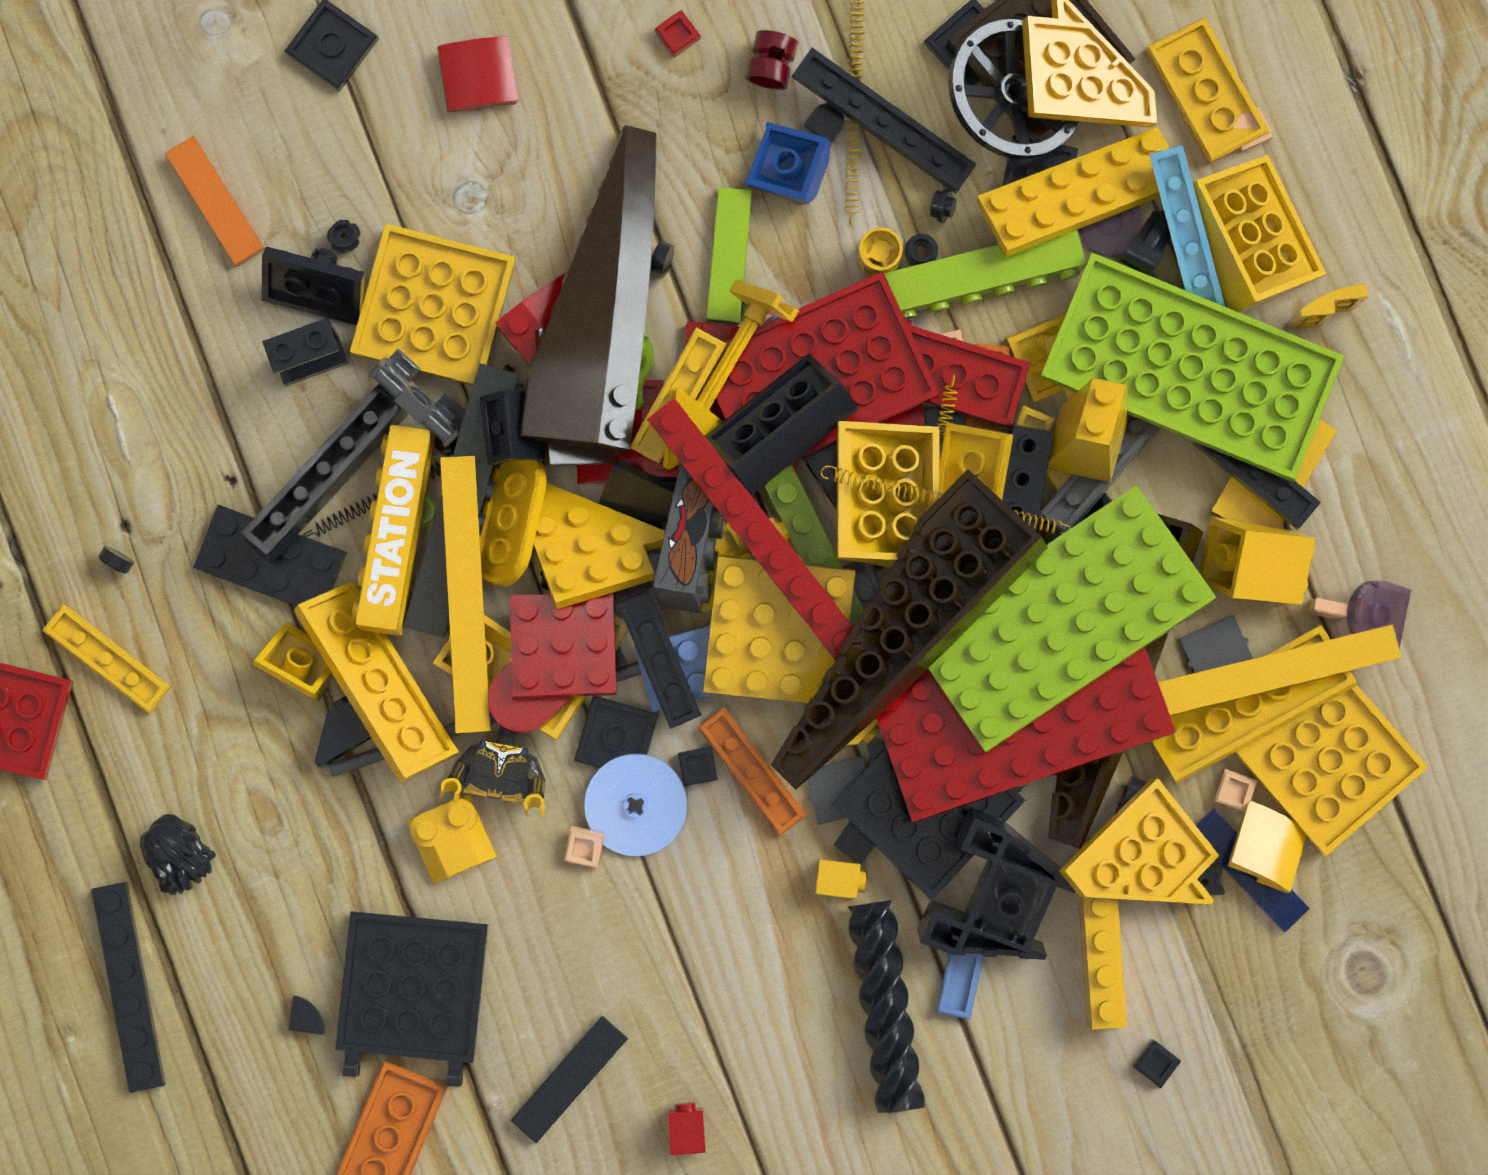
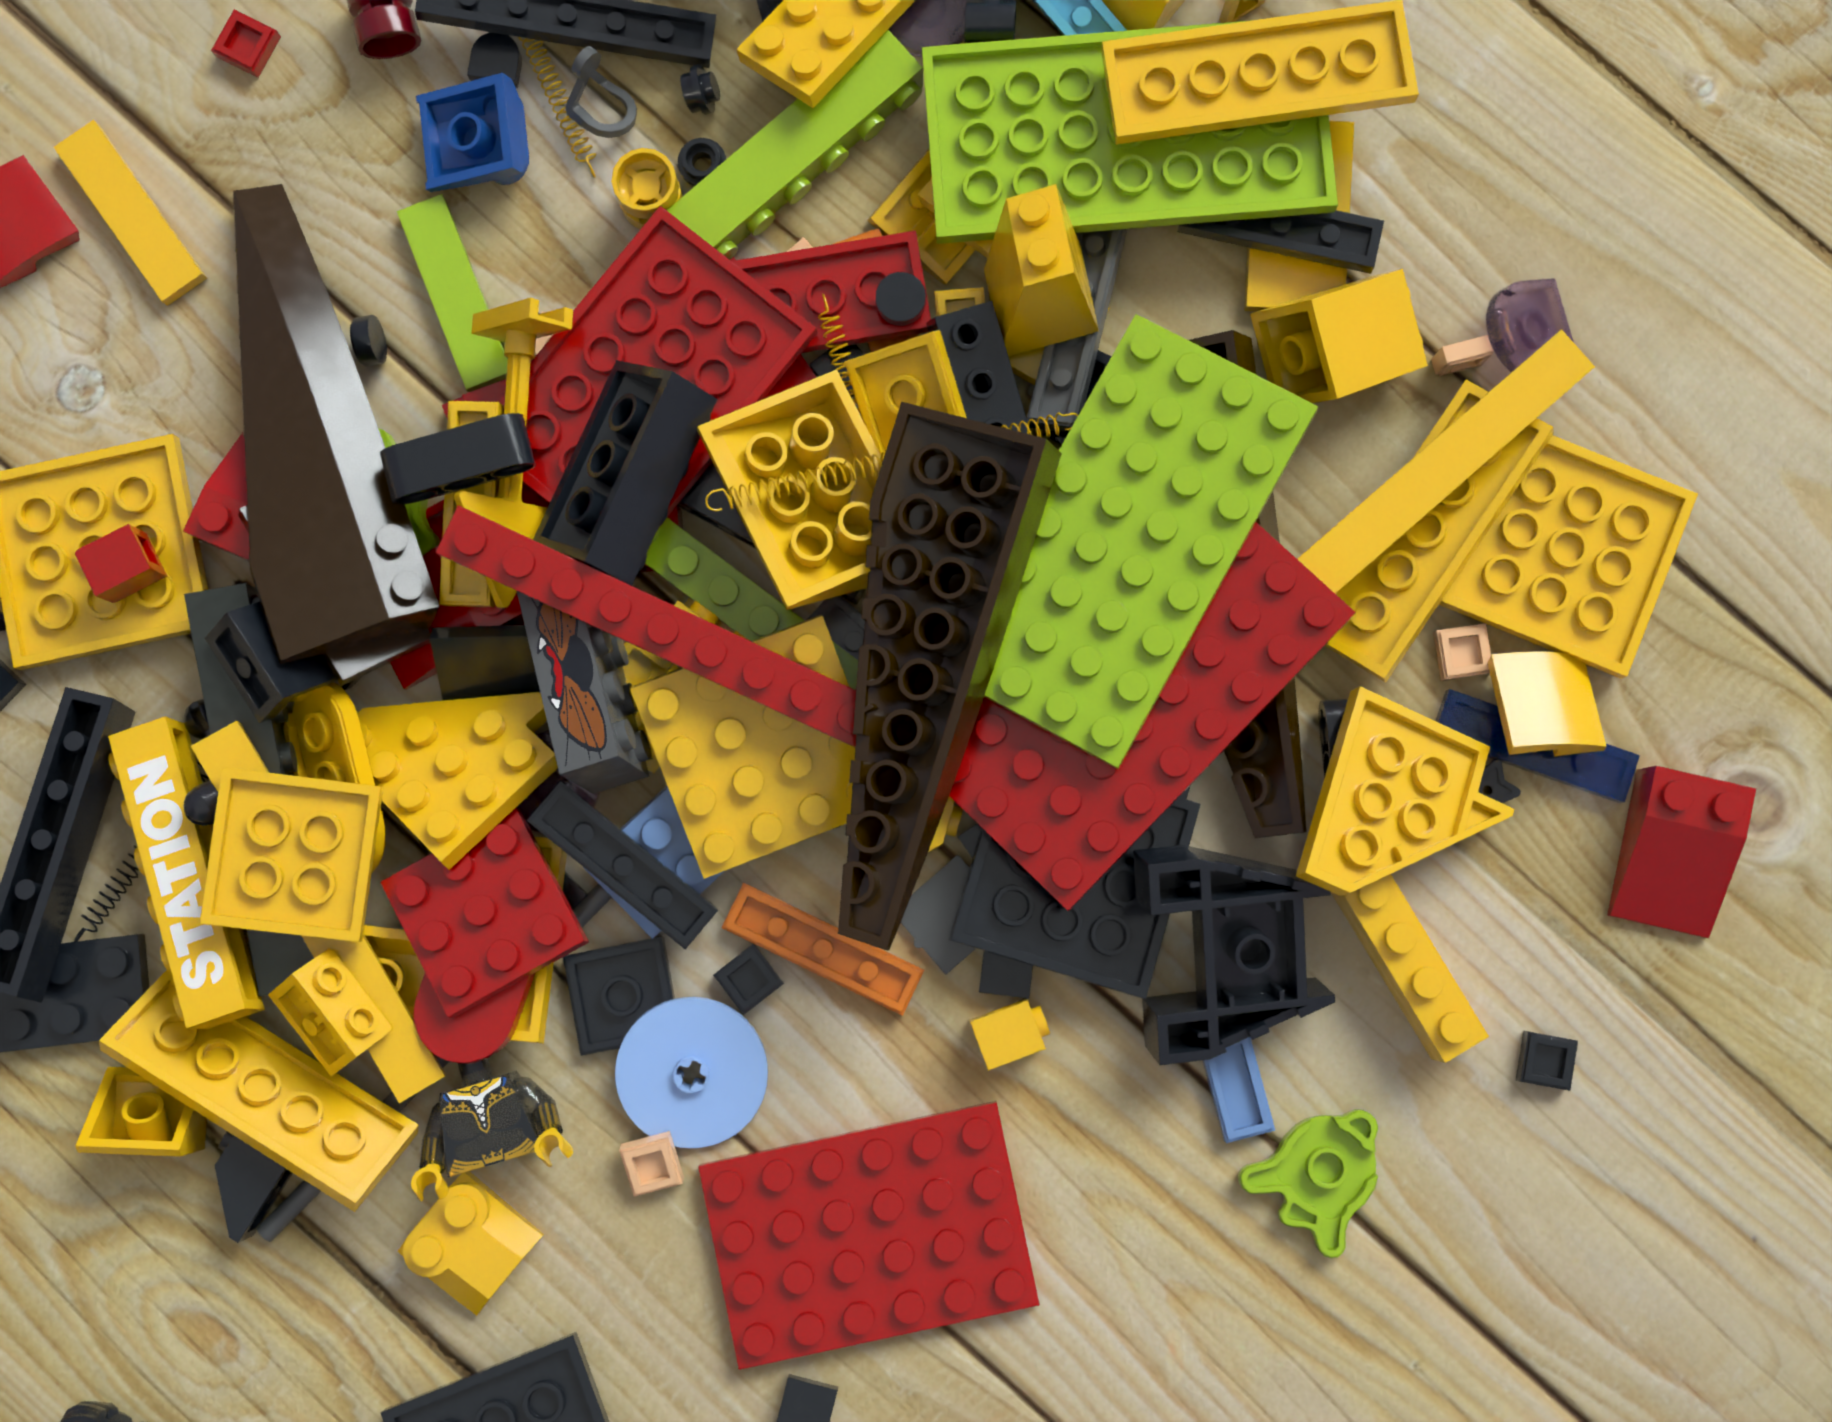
camera: 20 degrees left, 0 degrees up
(431, 496) = (201, 804): none -> black hinge
(439, 417) = (90, 671): dark grey piece -> none
(443, 658) = (330, 1011): none -> yellow bracket
(448, 323) = (120, 563): none -> red panel
(469, 553) = (291, 855): none -> yellow plate
(555, 104) = (130, 212): none -> yellow tile
(685, 367) = (457, 458): none -> black beam
(693, 956) = (868, 1235): none -> red plate
(878, 159) = (585, 67): none -> dark grey piece
(885, 1001) = (1152, 1163): black piece -> none
(984, 1061) = (1323, 1173): none -> lime tile
(1000, 401) = (900, 298): none -> black tile
(1216, 646) = (1342, 478): dark grey piece -> none
(1288, 374) = (1259, 72): none -> yellow plate
(1303, 978) = (1679, 849): none -> red slope

